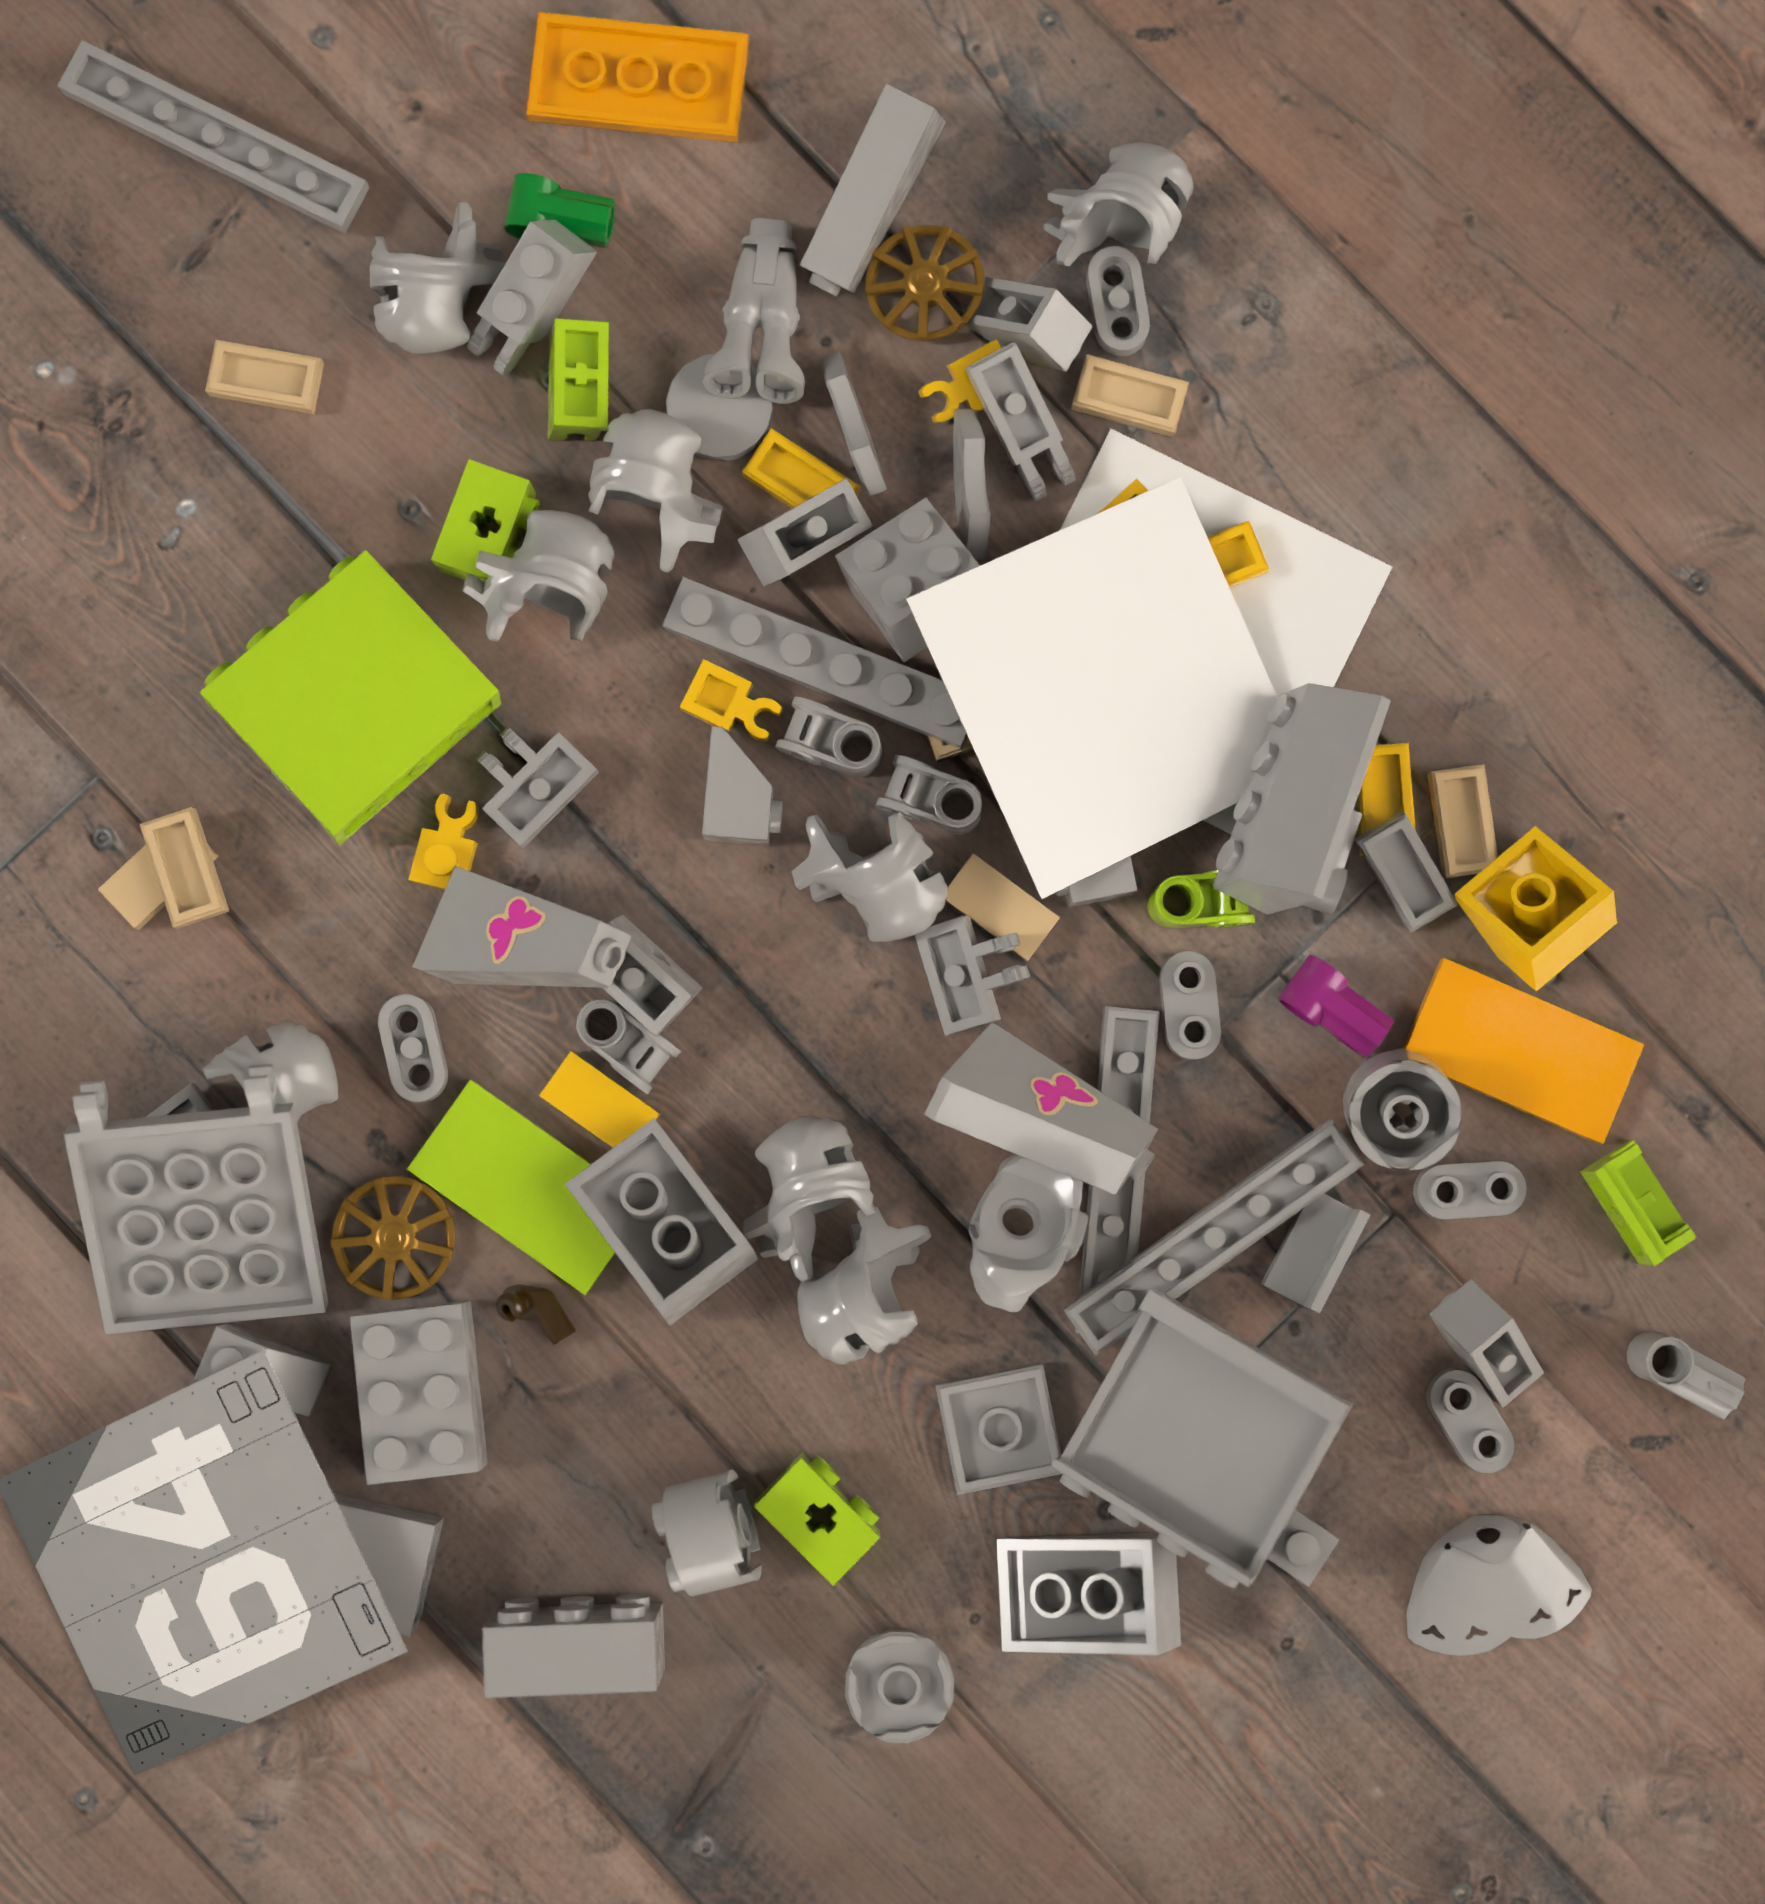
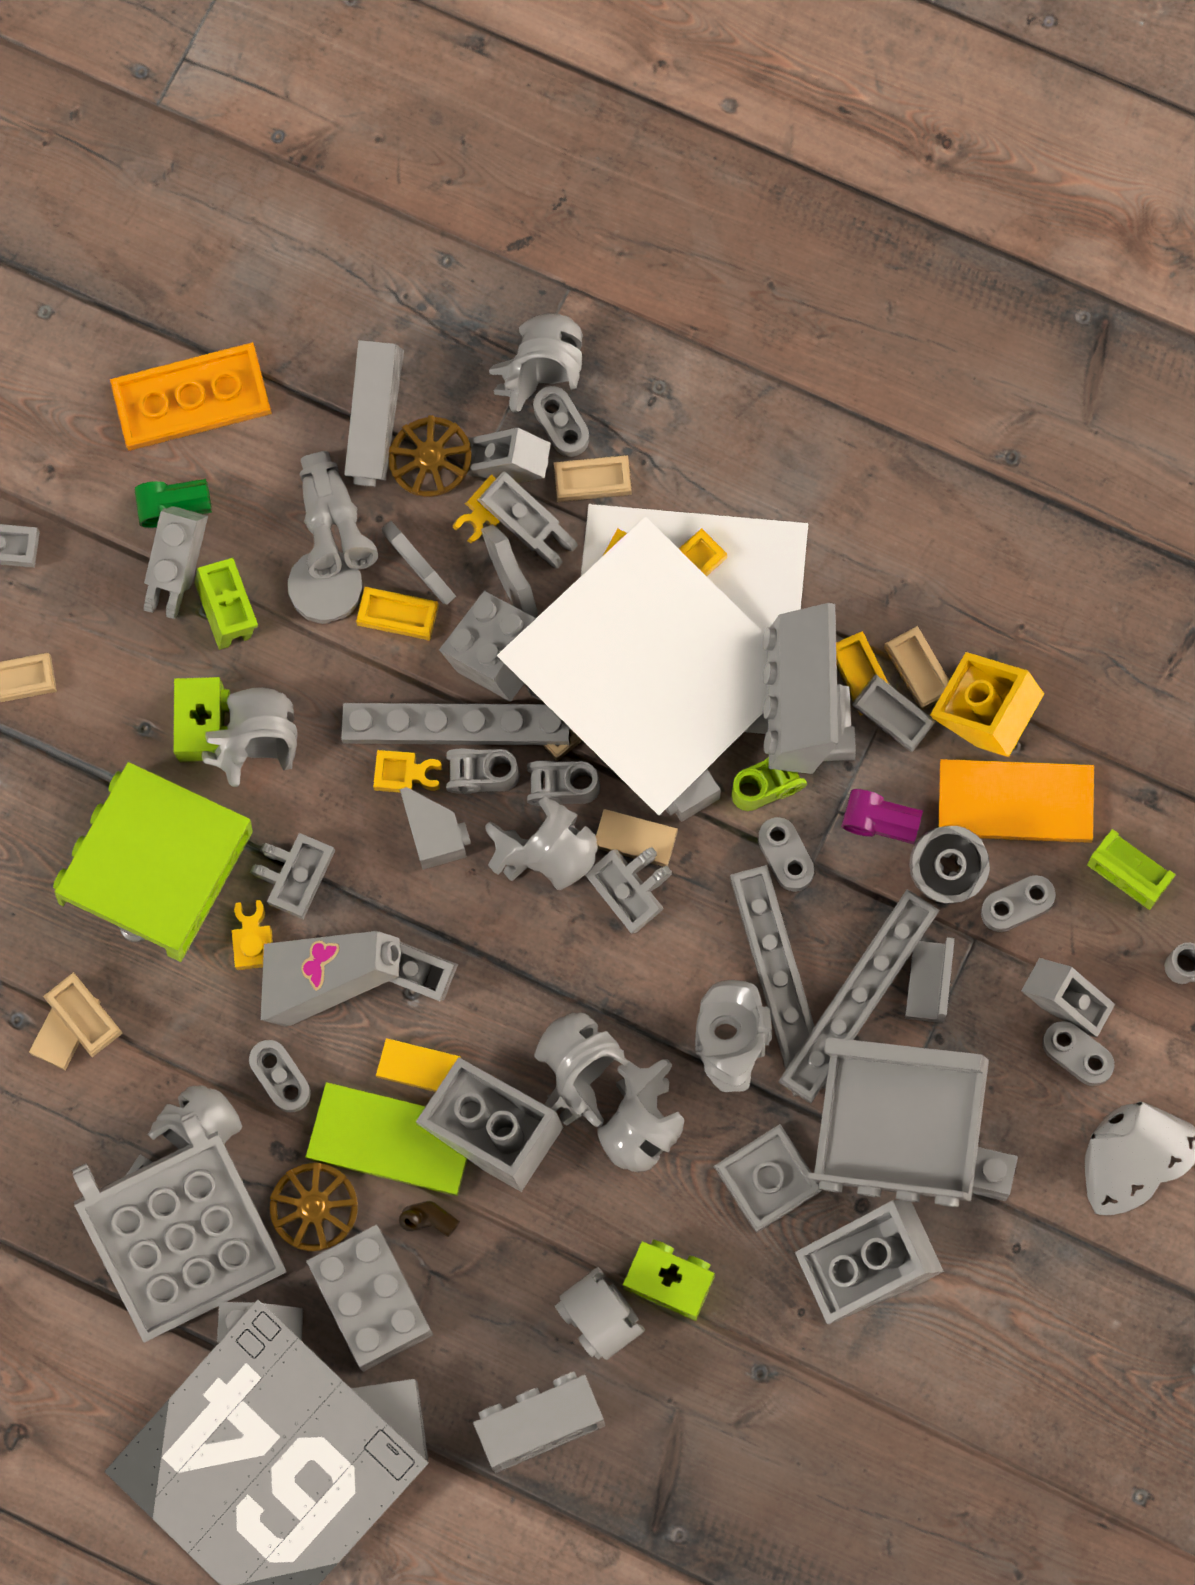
camera: 10 degrees left, 10 degrees down
(427, 294) = (105, 584): light grey piece -> none
(627, 1045) = (422, 1019): light grey piece -> none
(653, 468) = (298, 641): light grey piece -> none
(805, 533) = (412, 644): light grey slope -> none
(899, 1685) = (767, 1374): light grey tile -> none
(1041, 1112) = (713, 954): light grey slope -> none

